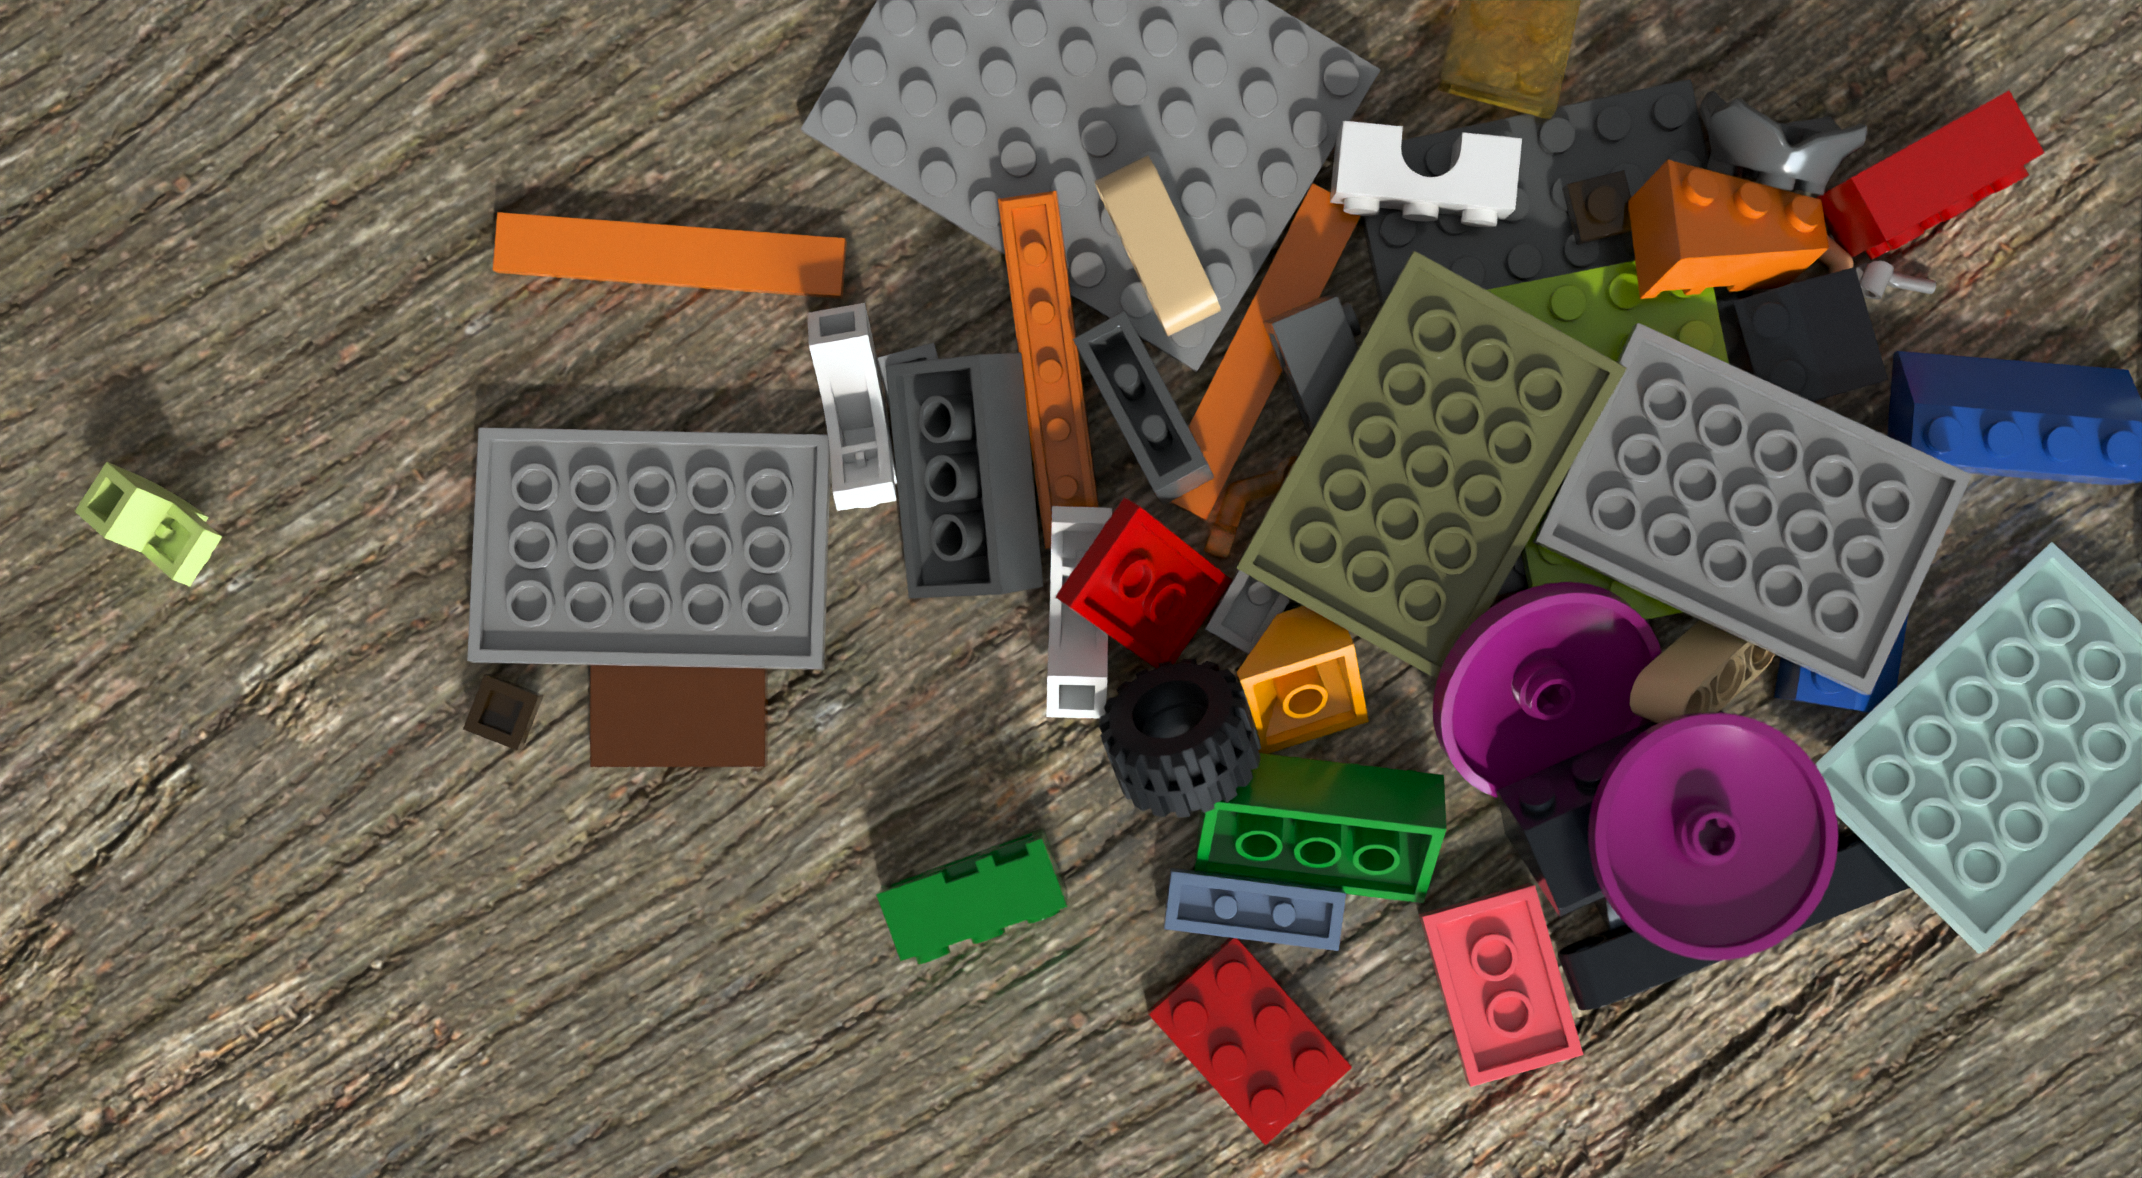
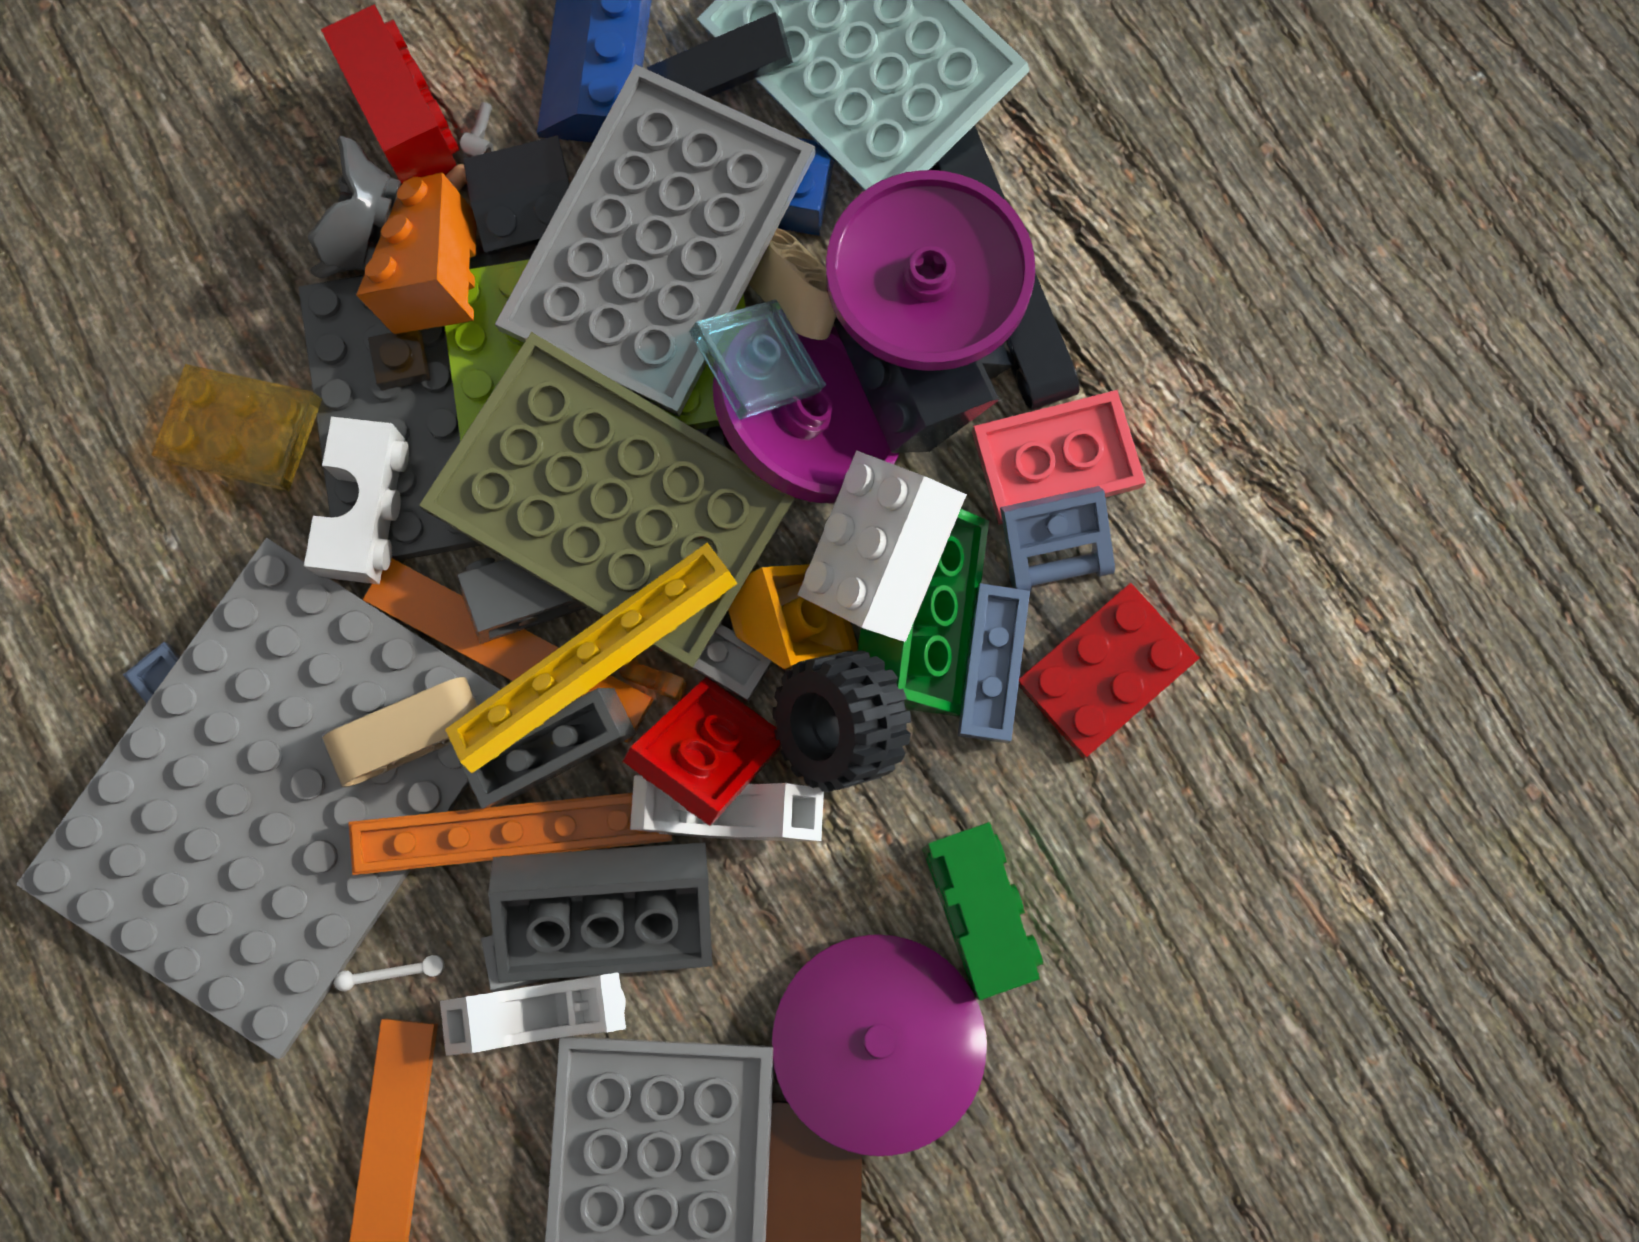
camera: 85 degrees left, 10 degrees down
(828, 784) = (879, 1045): none -> magenta dish
(903, 288) = (431, 966): none -> white hinge
(1243, 456) = (589, 657): none -> yellow plate
(1380, 781) = (881, 546): none -> white brick
(1414, 980) = (1056, 525): none -> sand blue plate
(1601, 633) = (757, 358): none -> clear light blue plate
(1993, 579) = (729, 58): none -> black tile

